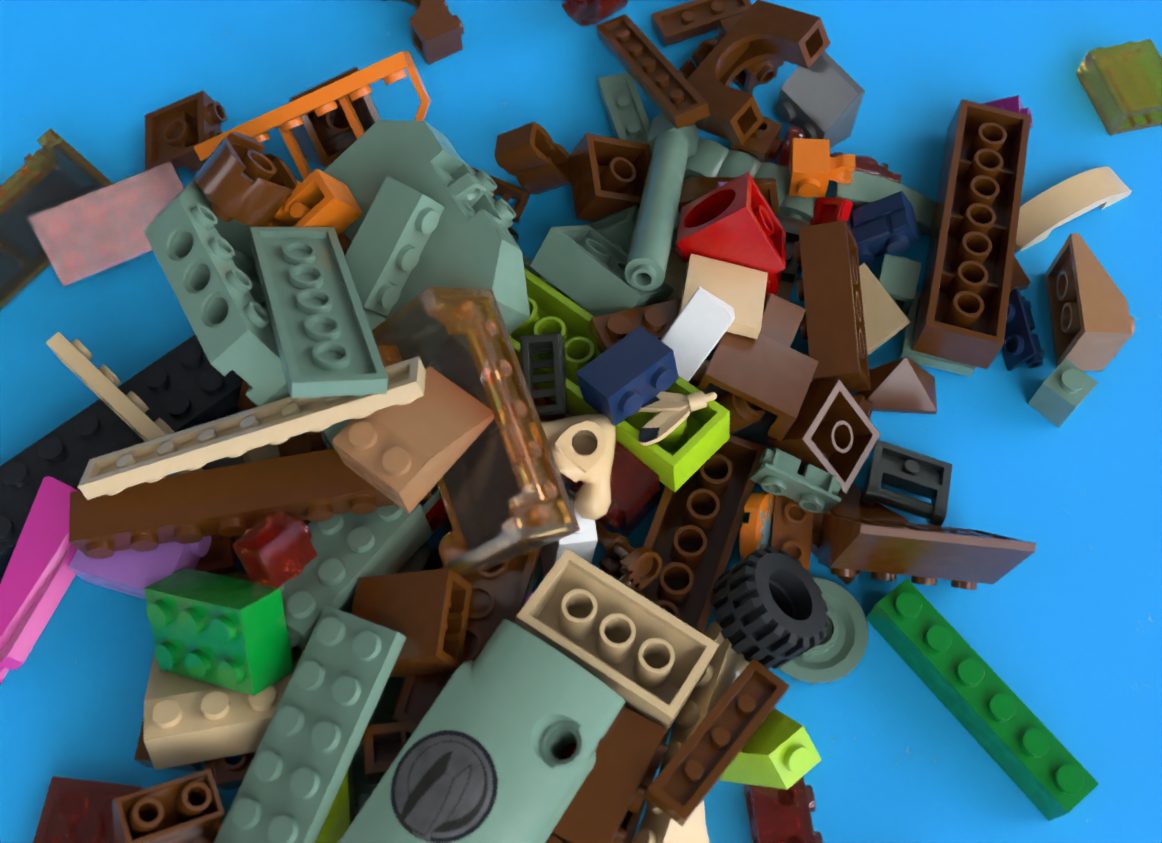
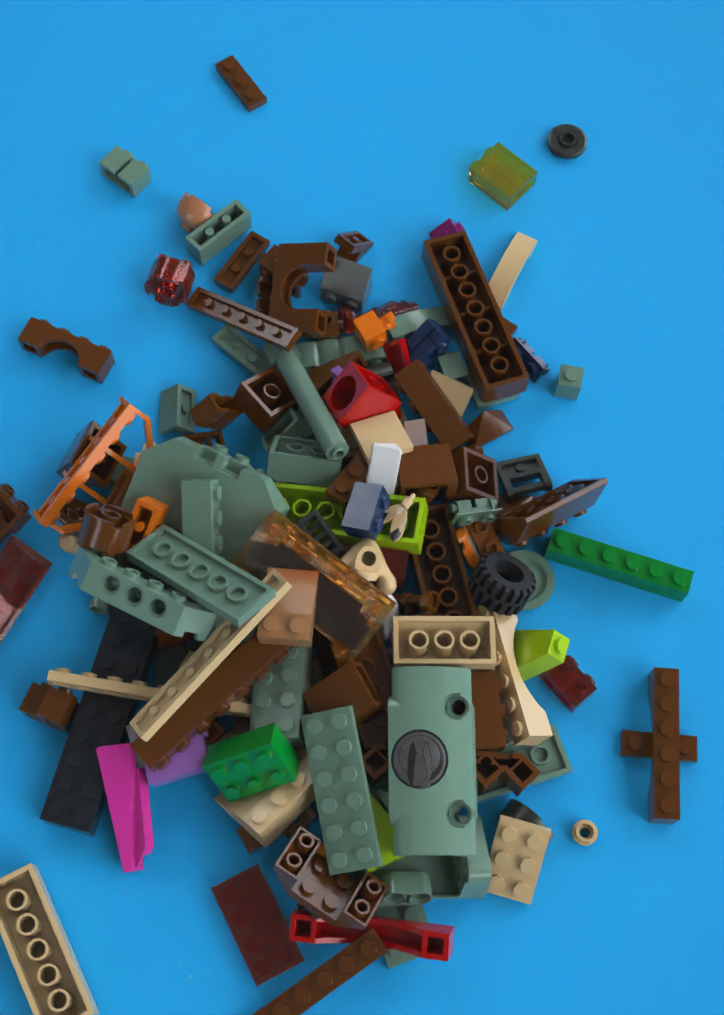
camera: 35 degrees left, 5 degrees up
(49, 392) = (50, 706): none -> reddish brown brick
(275, 550) = (258, 706): clear red brick -> none
(481, 142) = (175, 409): none -> sand green panel
(716, 742) = (520, 661): reddish brown plate -> none
(862, 64) = (352, 245): none -> reddish brown slope
(1085, 308) = (554, 328): medium nougat slope -> none

